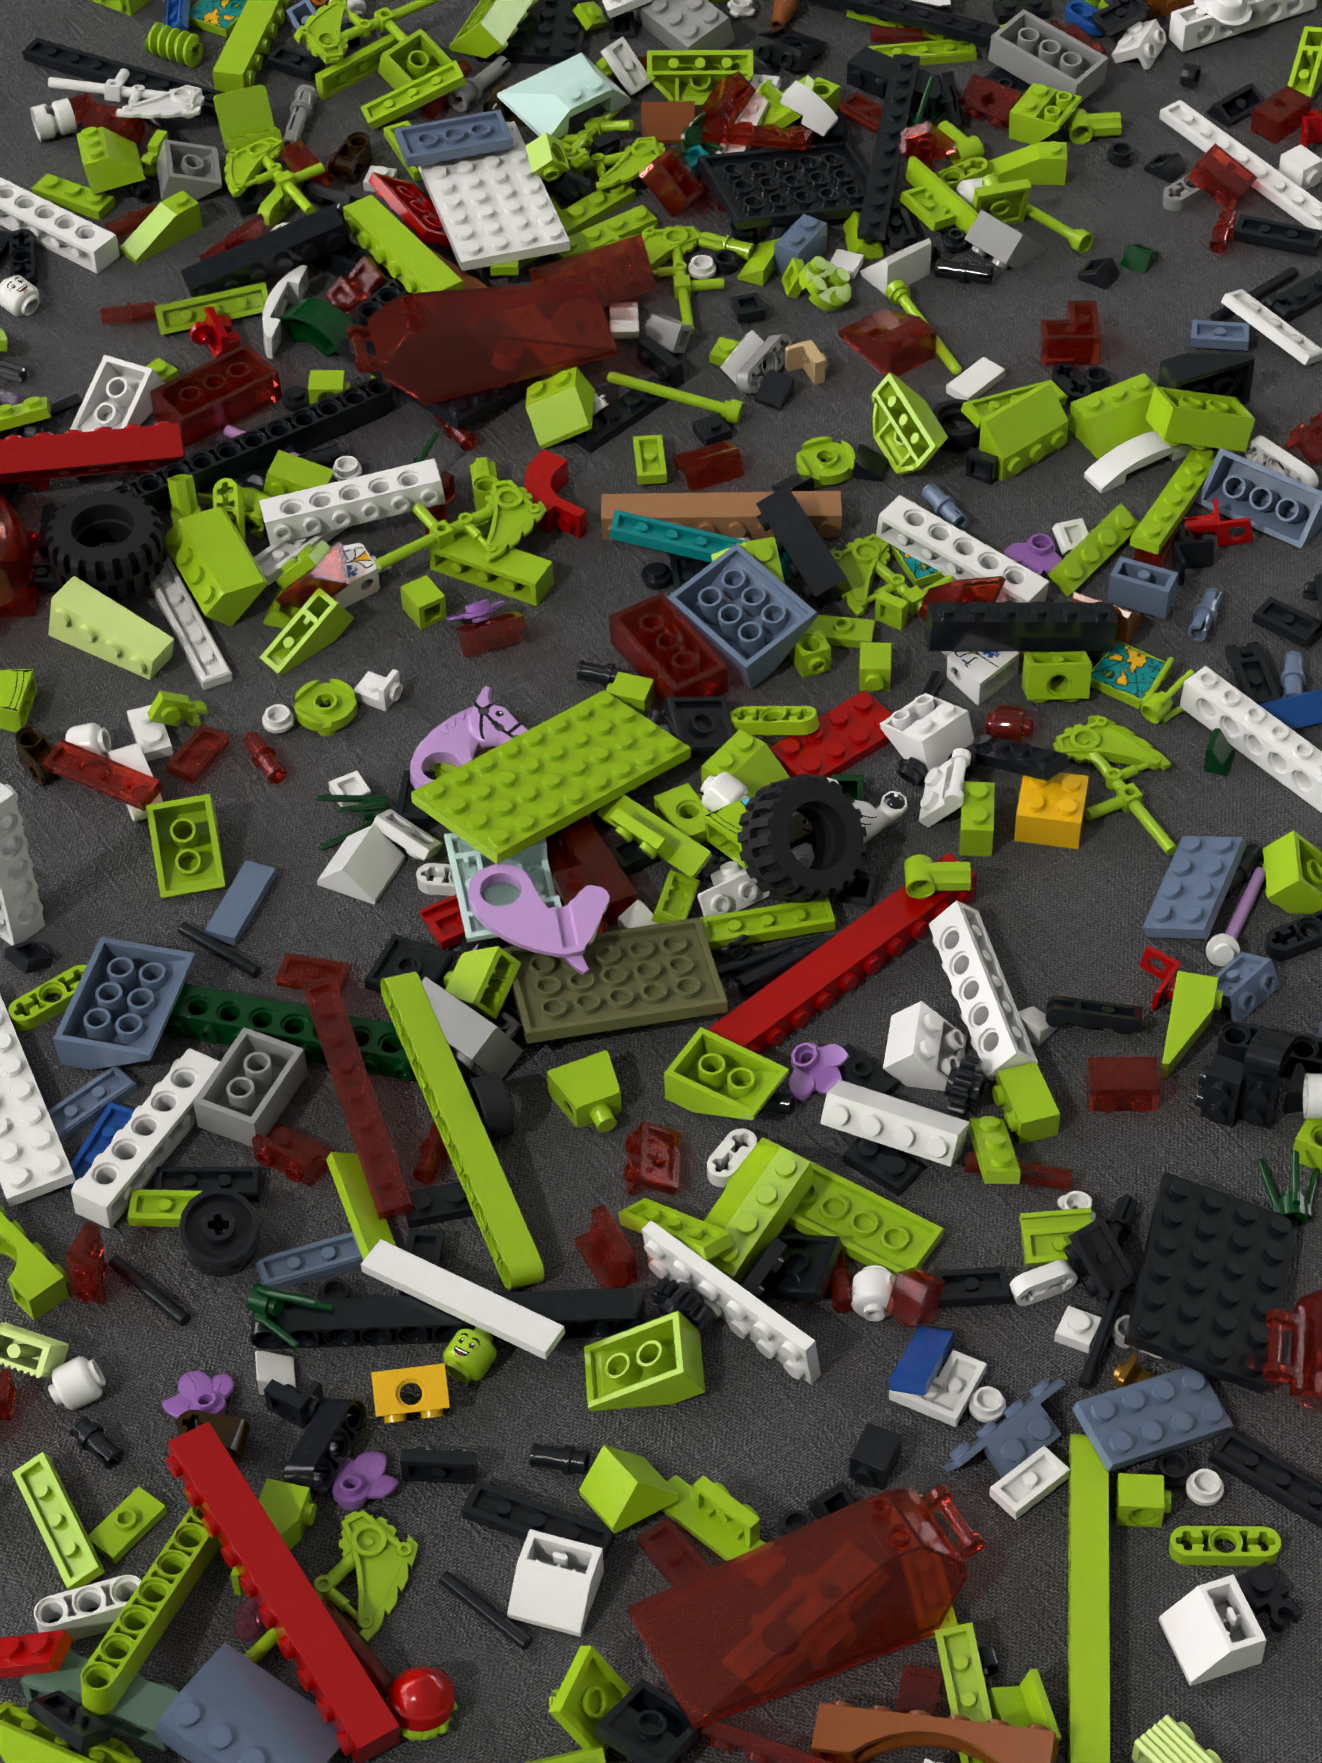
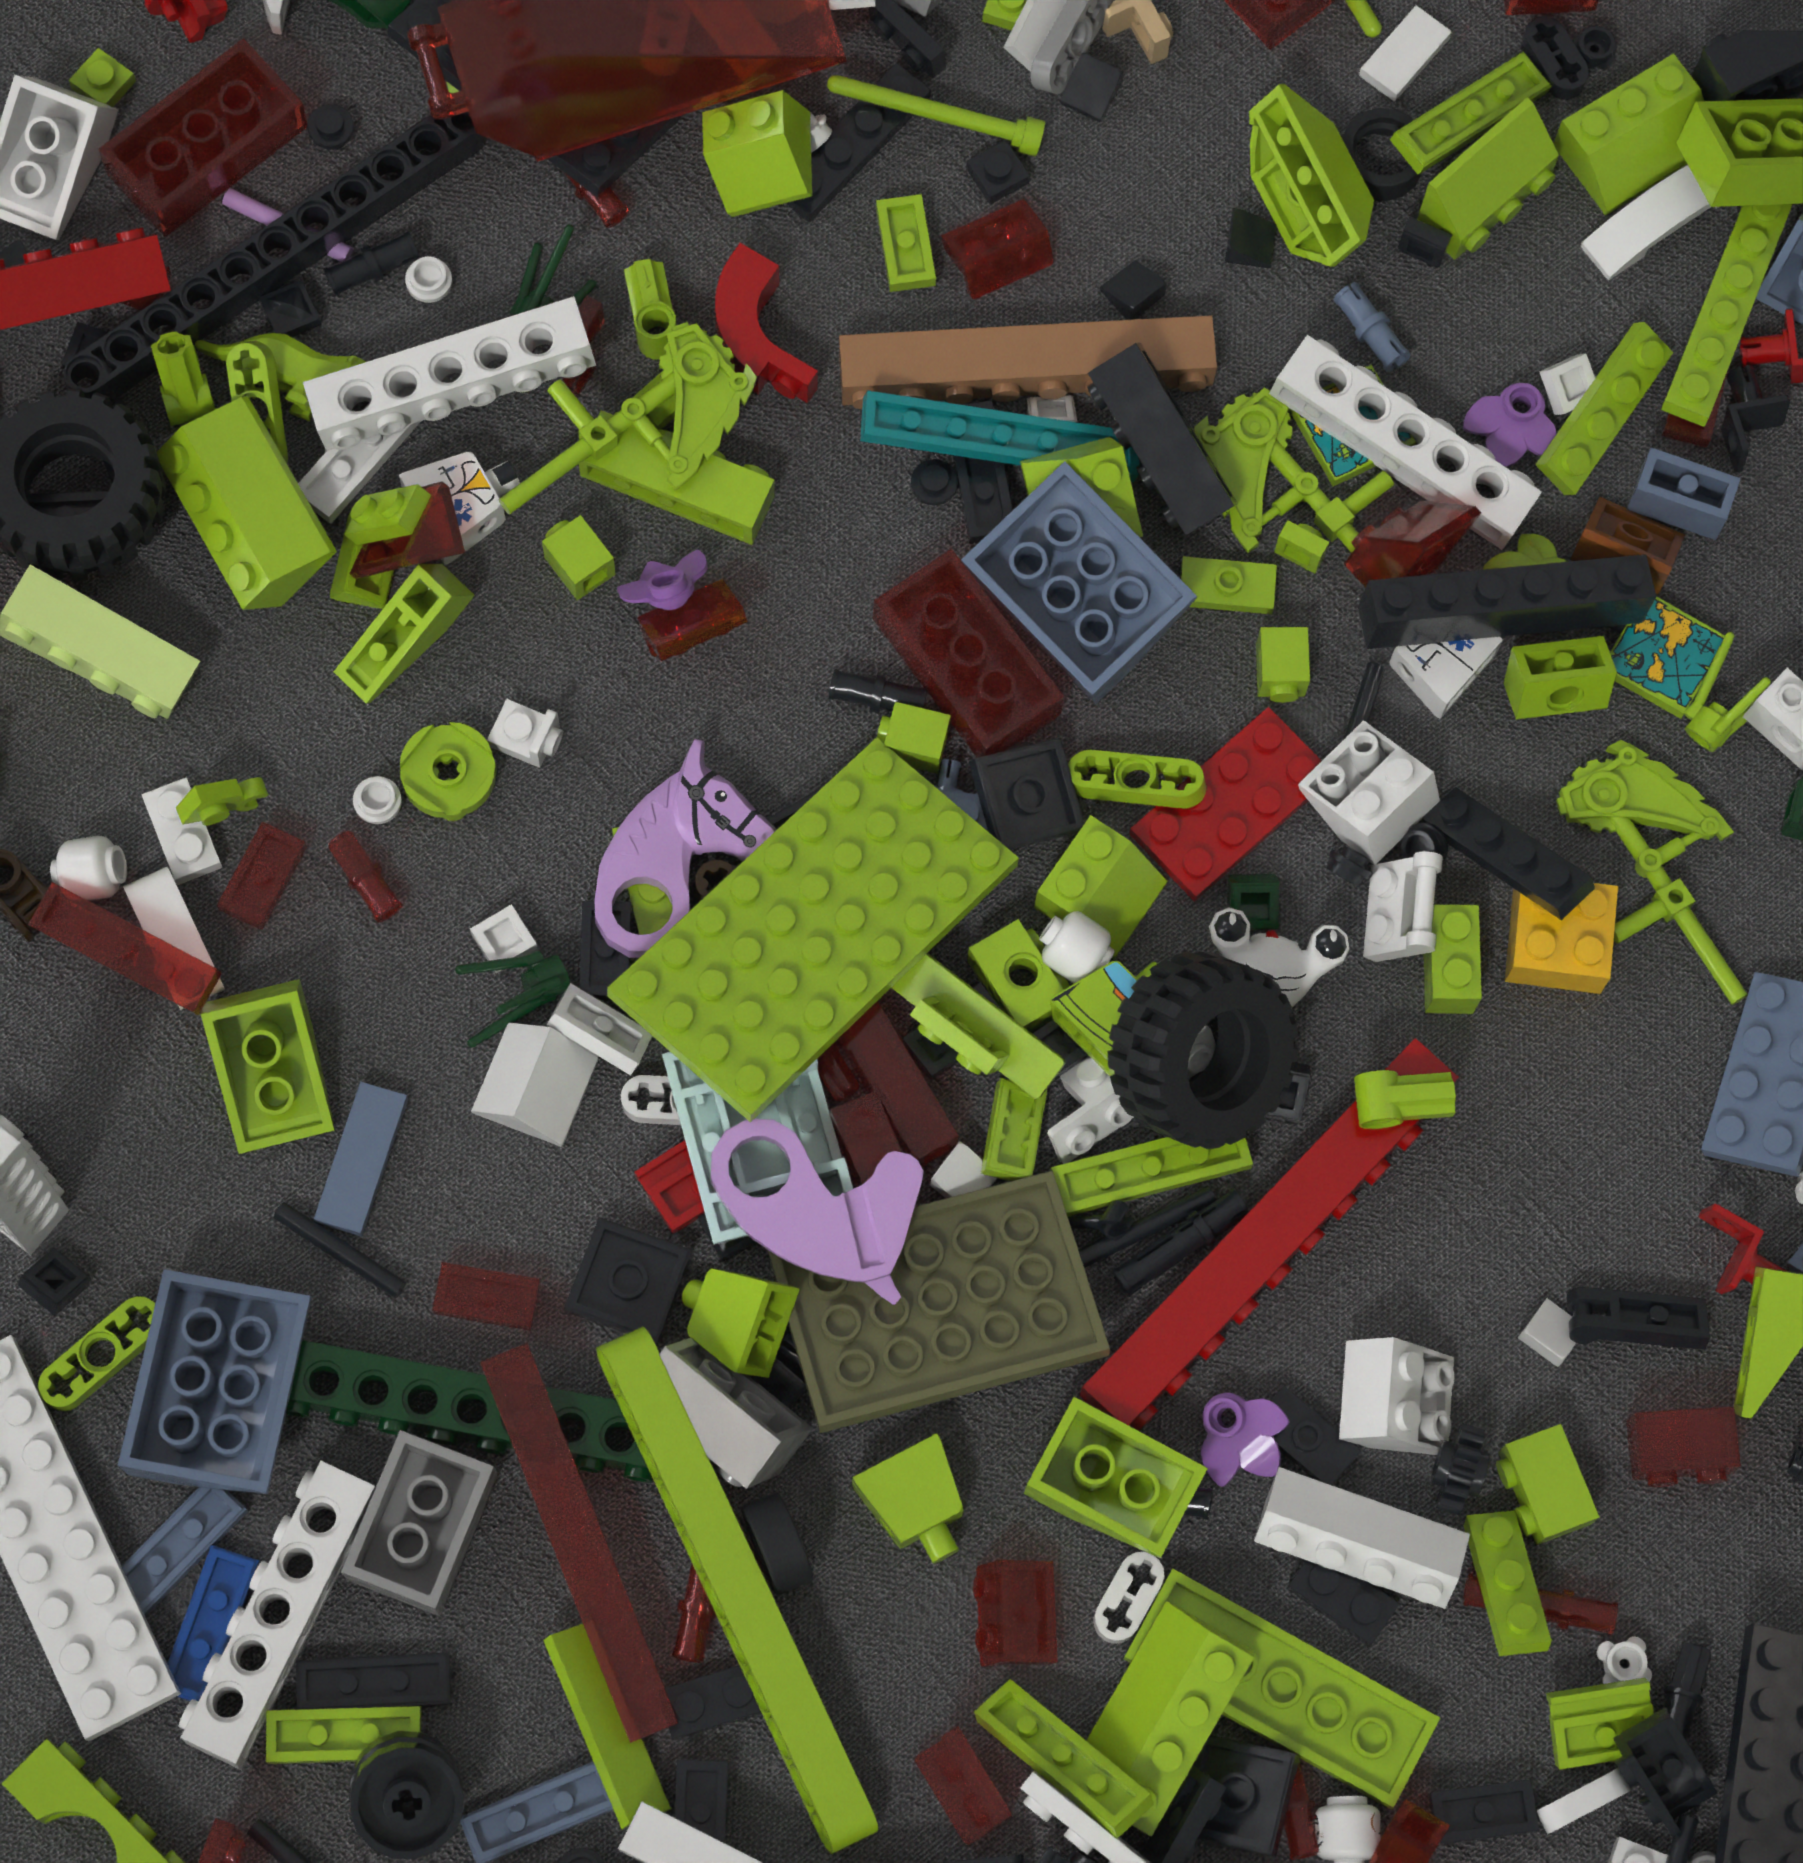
camera: 10 degrees left, 25 degrees up
(189, 628) = (219, 618): white tile -> none
(292, 1154) = (493, 1624): clear red bracket -> none
(294, 474) = (355, 318): lime brick -> none
(325, 384) = (381, 113): lime brick -> none
(811, 653) = (1187, 657): lime brick -> none
(838, 456) = (1190, 214): lime plate -> none
(981, 990) = (1496, 1307): white brick -> none
(1009, 723) = (1490, 771): clear red head -> none
(1205, 614) = (1776, 534): sand blue pin -> none

